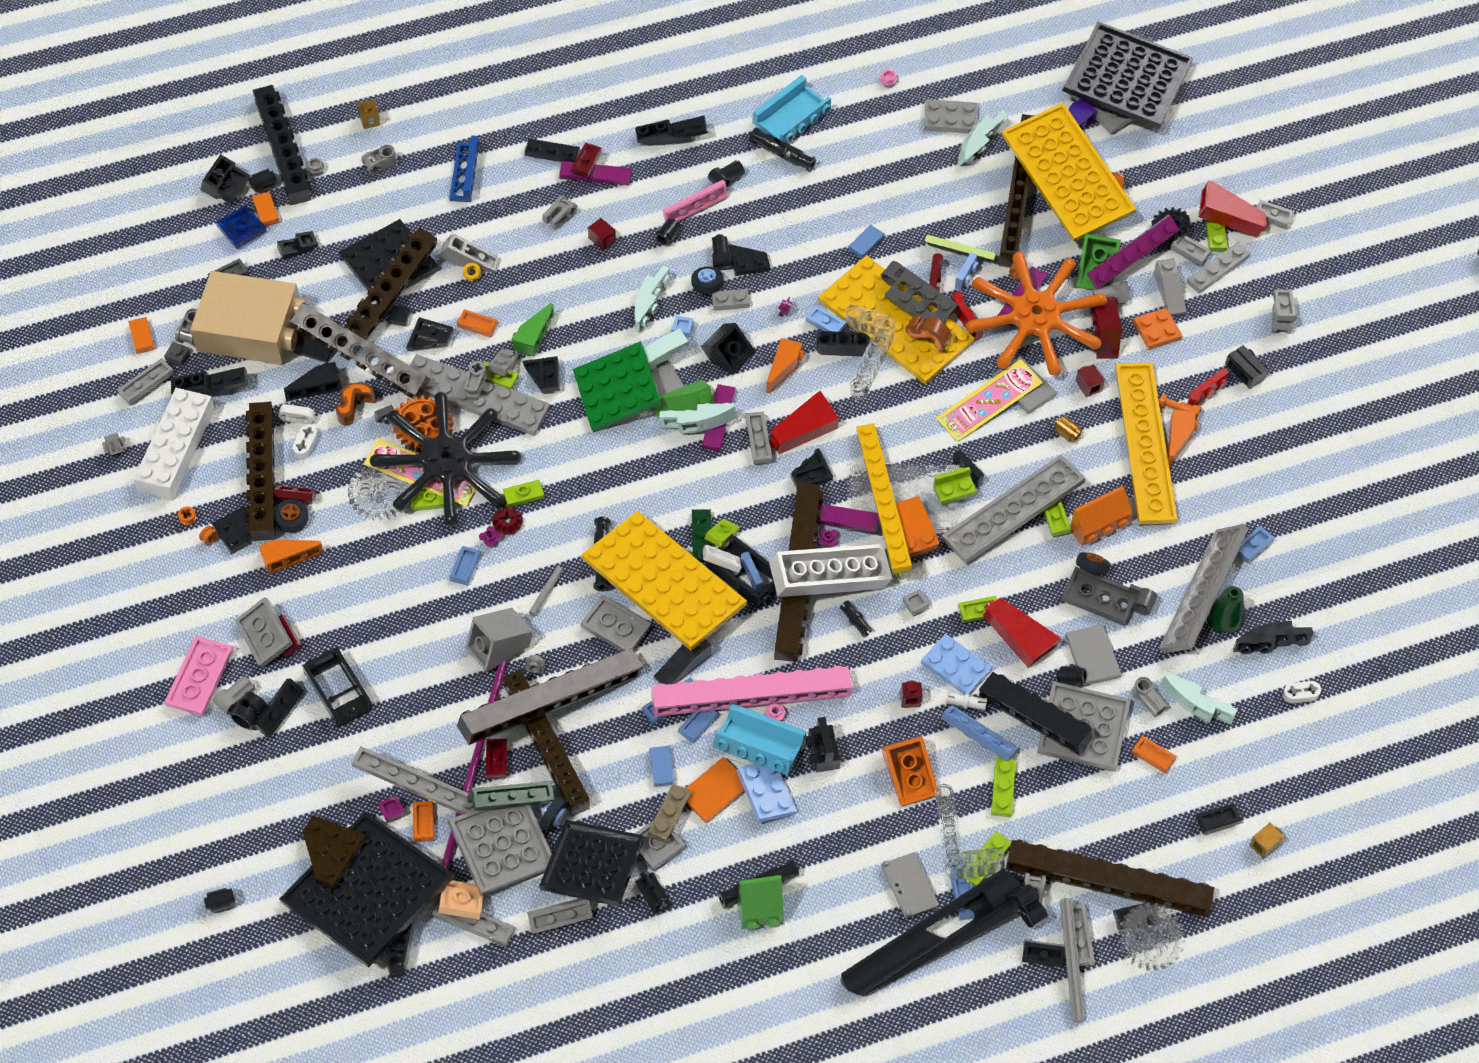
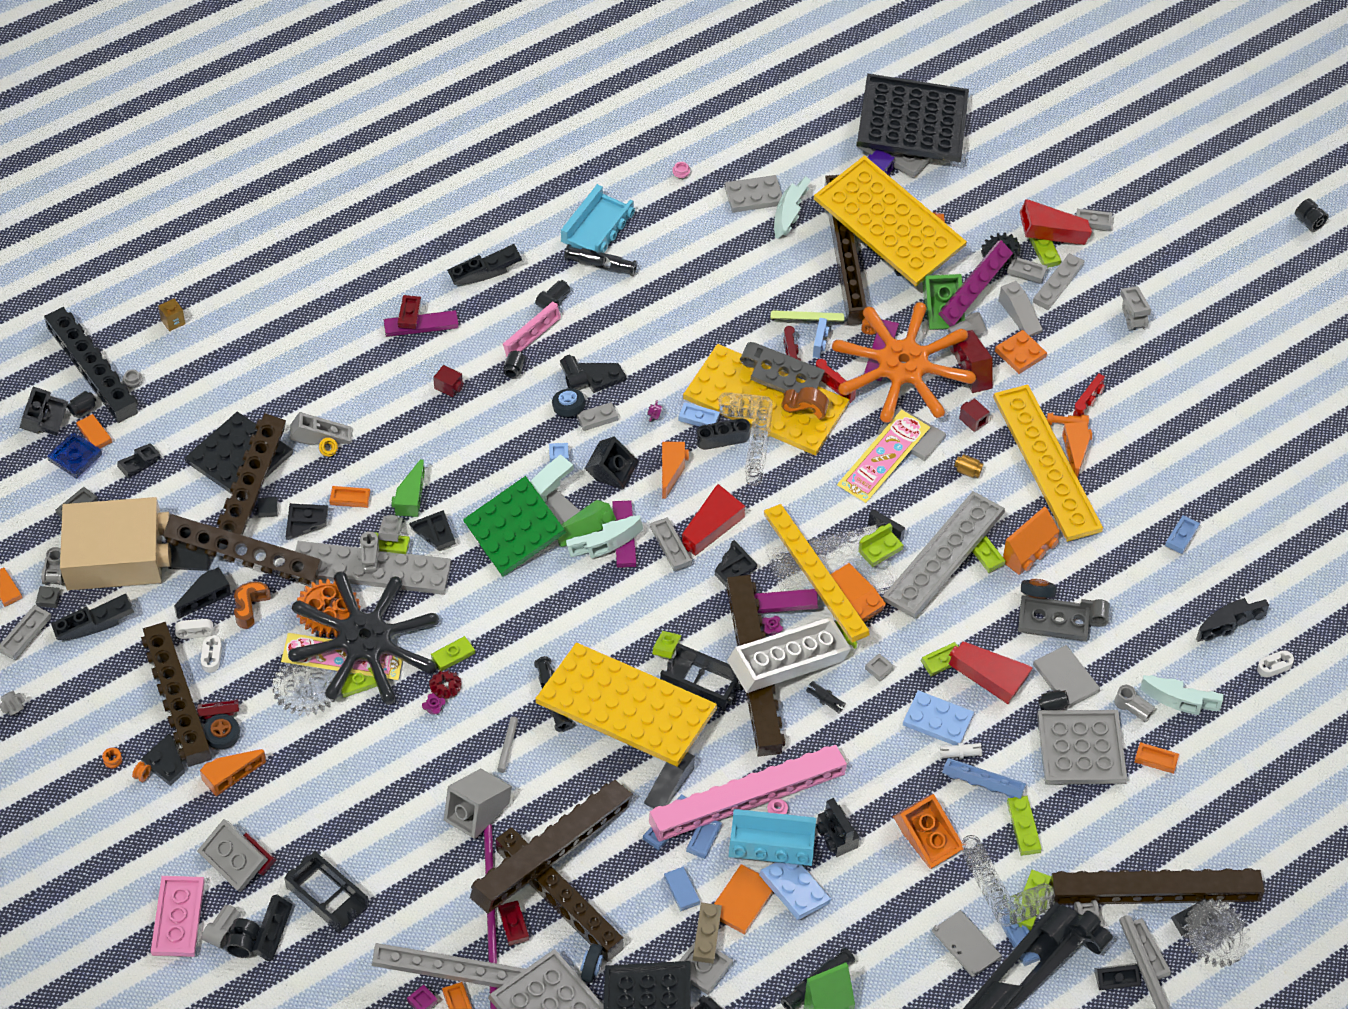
camera: 15 degrees left, 5 degrees down
(174, 444) = (75, 688): white brick -> none
(381, 159) = (197, 357): light grey piece -> none
(381, 414) = (284, 608): dark grey plate -> none
(465, 565) = (416, 739): medium blue tile -> none
(468, 172) = (293, 346): blue fence -> none
(511, 795) = (543, 954): fence -> none
(535, 664) = (521, 819): light grey plate -> none
(551, 150) = (369, 311): black plate -> none
(559, 212) = (401, 366): light grey piece -> none
(615, 624) = (589, 760): light grey plate -> none
(647, 297) = (516, 433): light aqua slope -> none
(700, 526) = (643, 647): dark green plate -> none
(721, 558) = (675, 669): white tile -> none
(751, 572) = (709, 676): medium blue tile -> none
(866, 241) = (712, 331): medium blue tile -> none
(911, 689) = (905, 752): dark red brick -> none
(1036, 713) = (1034, 745): black brick -> none
(1203, 589) = (1151, 587): light grey piece -> none
(1218, 818) = (1239, 804): black plate -> none
(1228, 611) = (1181, 603): dark green cone -> none
(1246, 366) = (1118, 368): black brick -> none
(1267, 840) = (1292, 812): pearl gold brick -> none

